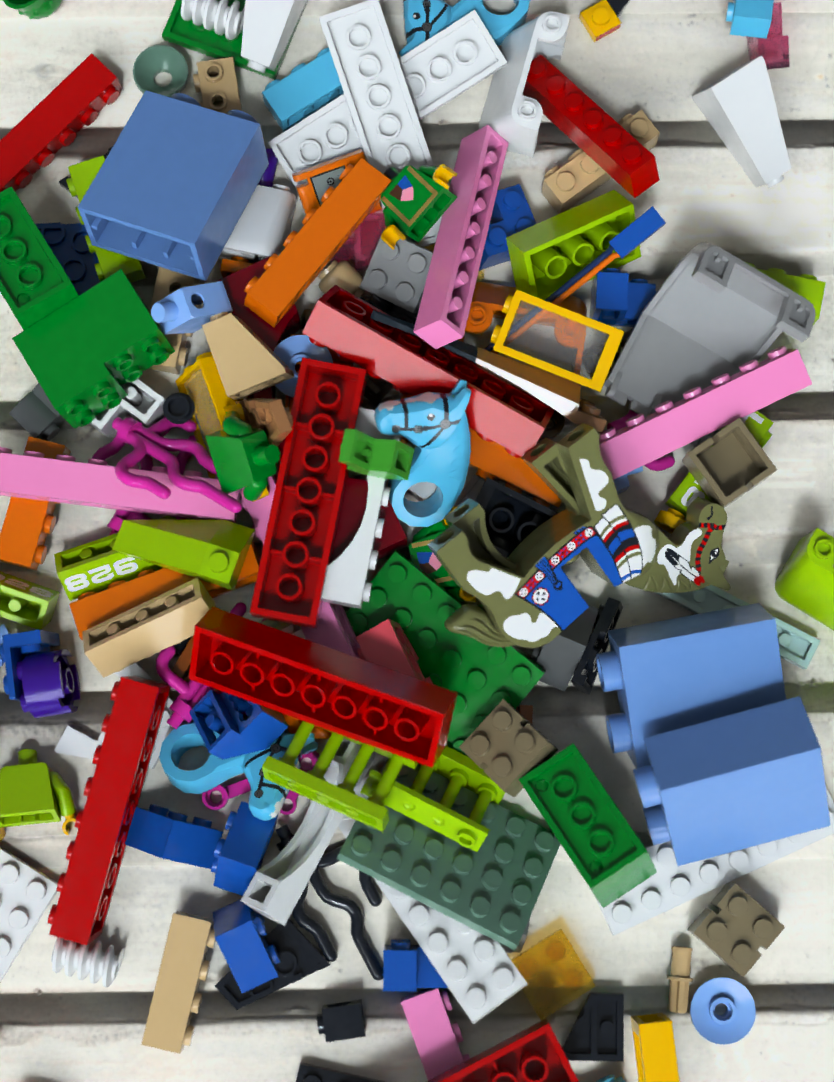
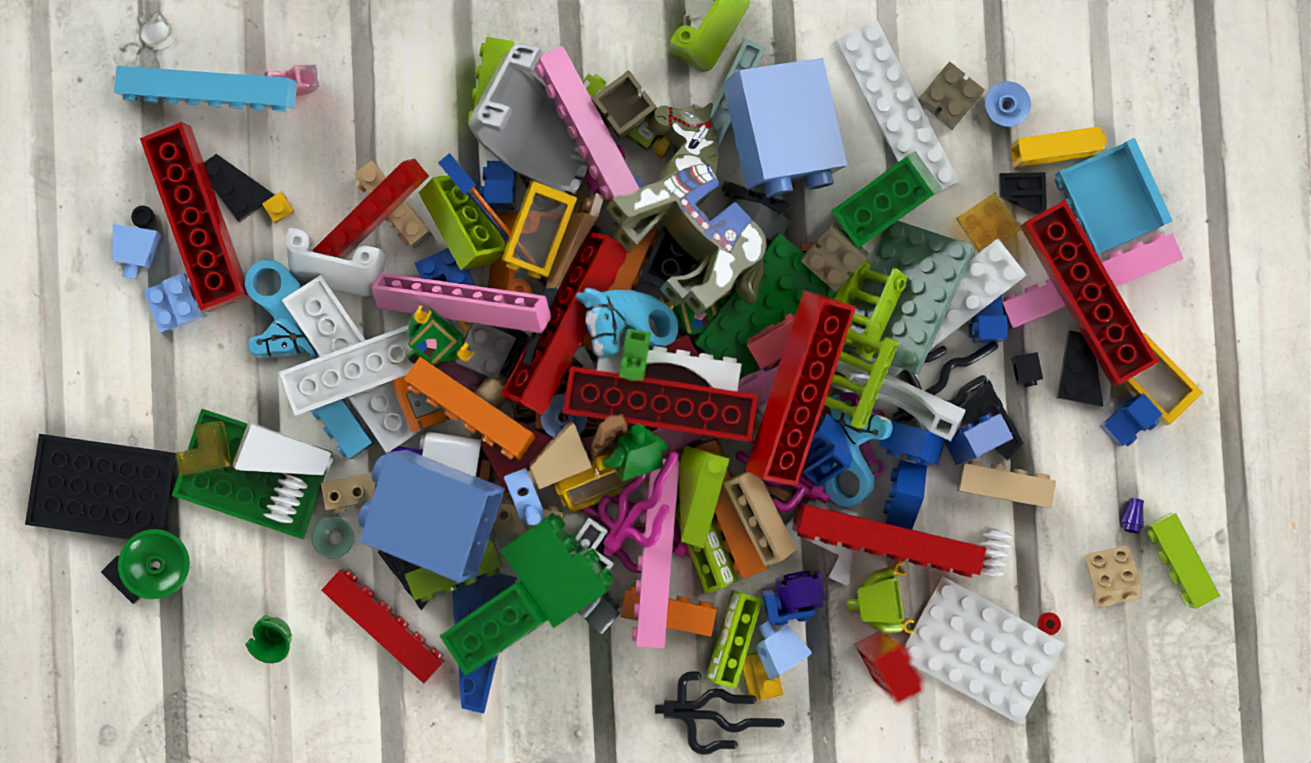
camera: 85 degrees left, 5 degrees up
(179, 408) = (594, 507): black plate -> none
(679, 979) = (987, 134): tan axle -> none
(734, 782) = (853, 97): medium blue brick -> none
(747, 121) = (355, 96): white slope -> none

